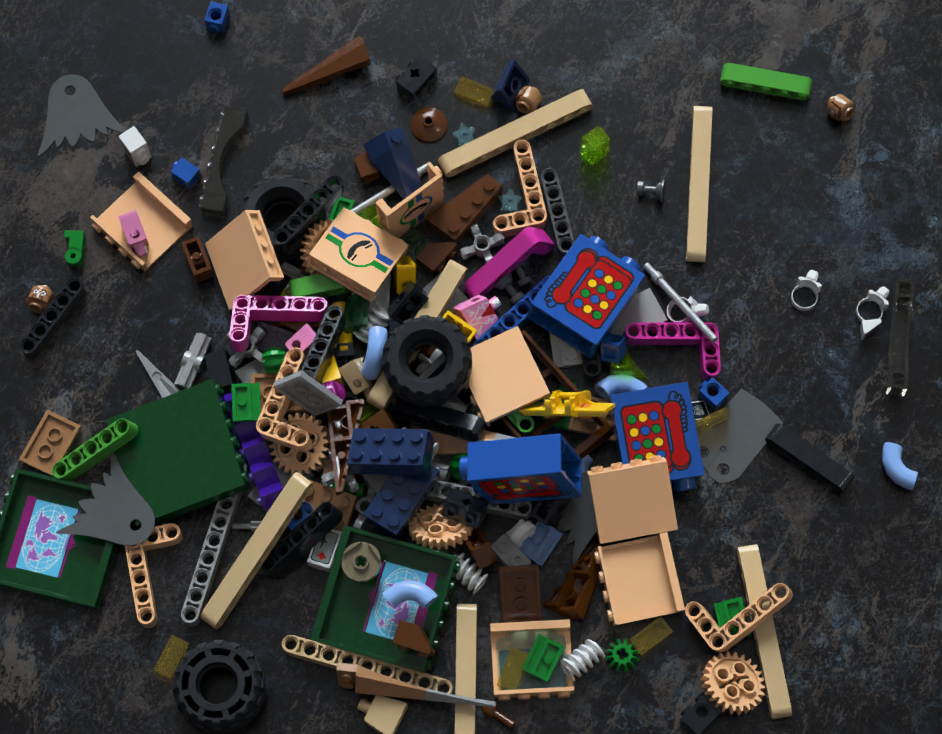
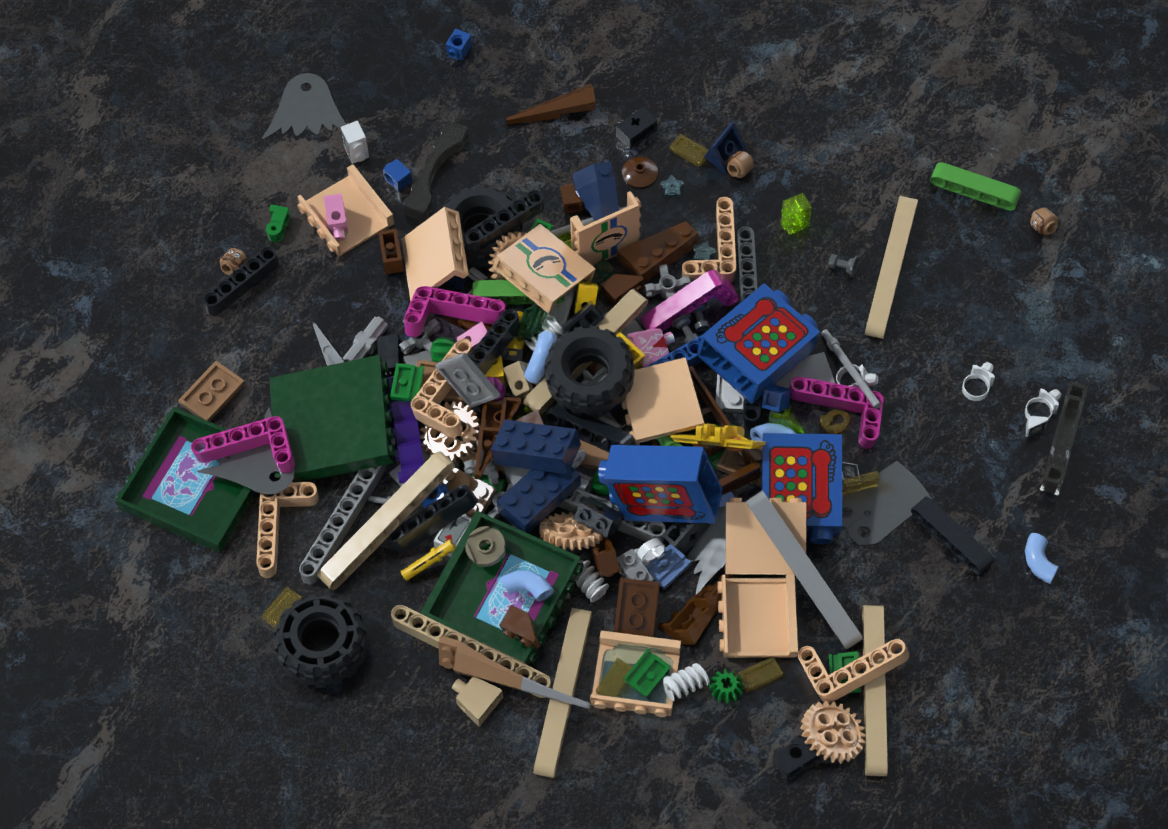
camera: 10 degrees right, 10 degrees down
(86, 451) = (253, 401): bright green beam -> none
(101, 494) = (249, 441): none -> dark pink beam
(312, 576) = (447, 548): none -> yellow pin
(491, 712) = (584, 715): reddish brown bar -> none
(520, 129) = (707, 194): tan beam -> none
(676, 527) = (804, 570): none -> light grey beam
(677, 365) = (825, 420): none -> clear yellow piece
(713, 401) = (867, 466): blue brick -> none

